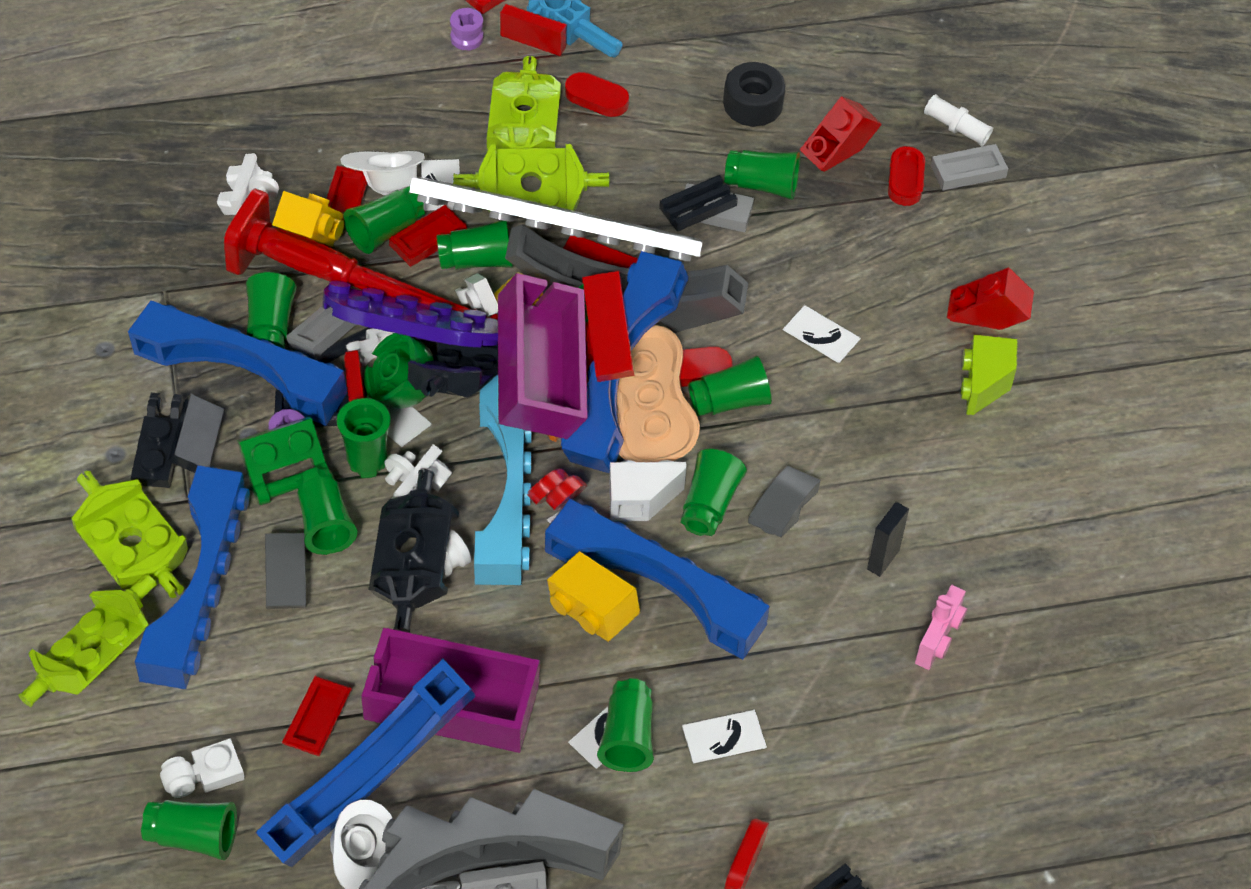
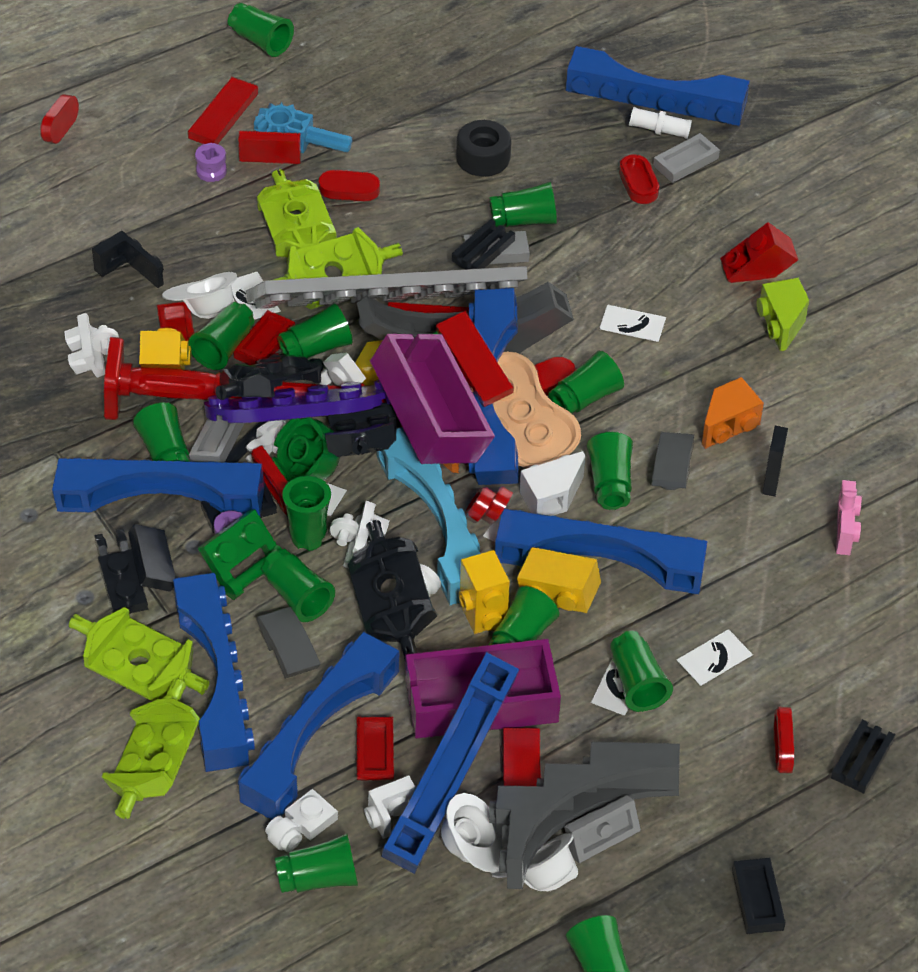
camera: 20 degrees left, 5 degrees down
(294, 779) = (387, 802): none -> white bracket
(325, 97) = (123, 249): none -> black bracket
(342, 627) = (364, 669): none -> blue arch
(377, 278) = (261, 378): none -> black plate
(459, 780) = (521, 756): none -> red tile
(503, 584) = (483, 591): none -> yellow brick
(534, 630) = (526, 618): none -> green plant
(840, 134) = (571, 160): red slope -> none
(871, 467) = (731, 411): none -> orange slope
(1029, 110) = (712, 98): none -> blue arch

